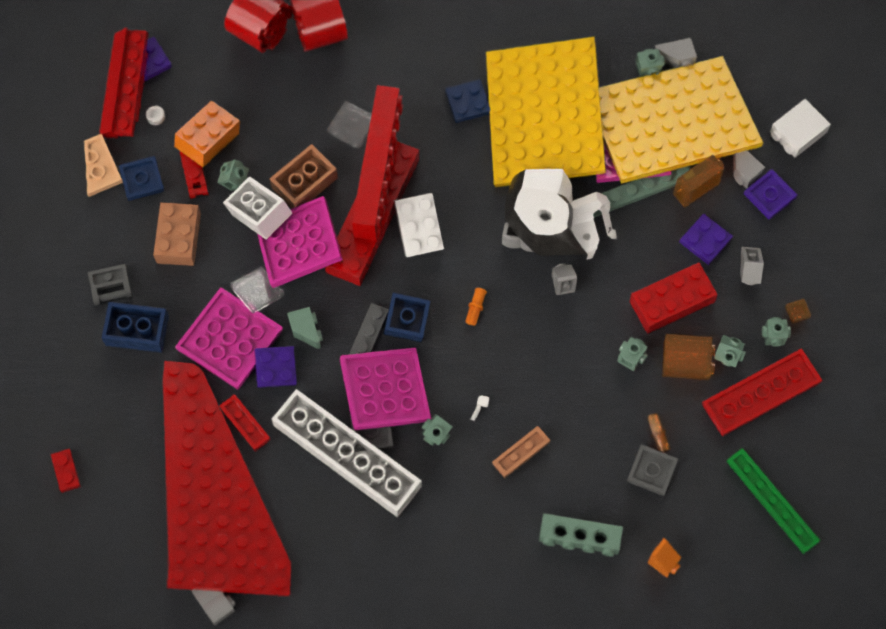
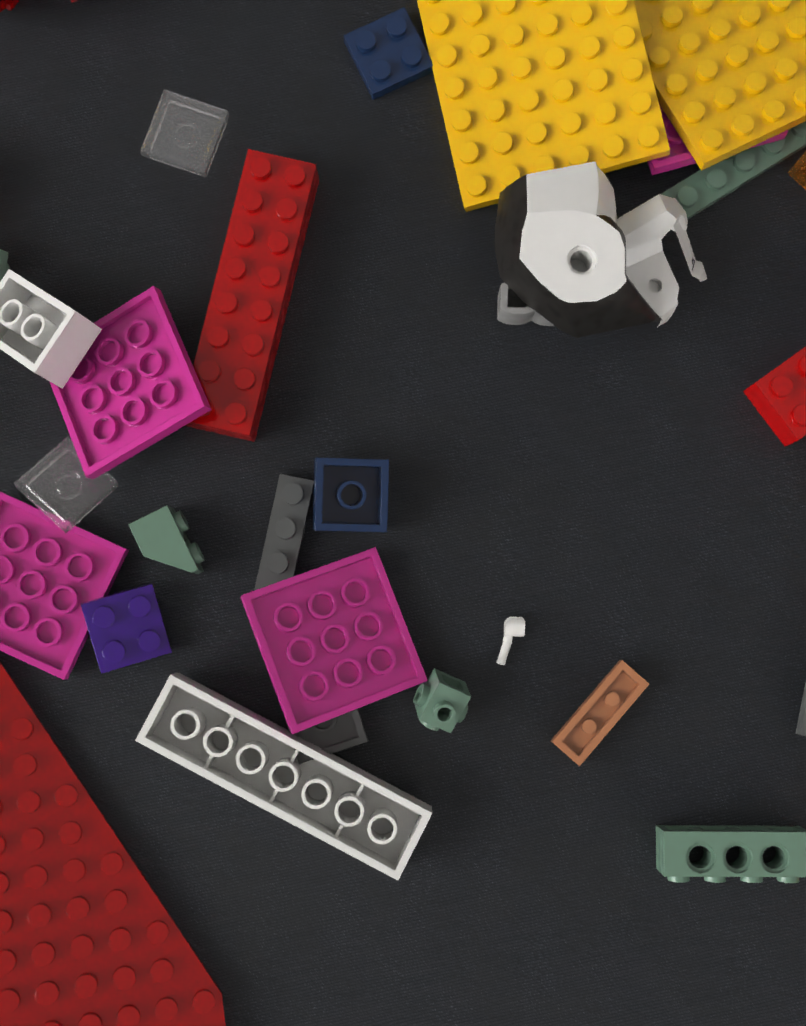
camera: 10 degrees left, 15 degrees up
(244, 422) = (90, 742): red plate -> none
(303, 177) = (112, 252): nougat brick -> none
(377, 163) = (241, 204): red brick -> none
(418, 224) = (341, 312): white brick -> none
(475, 306) = (470, 449): orange axle -> none
(564, 279) = (624, 369): light grey slope -> none
(632, 353) = (772, 493): sand green brick -> none

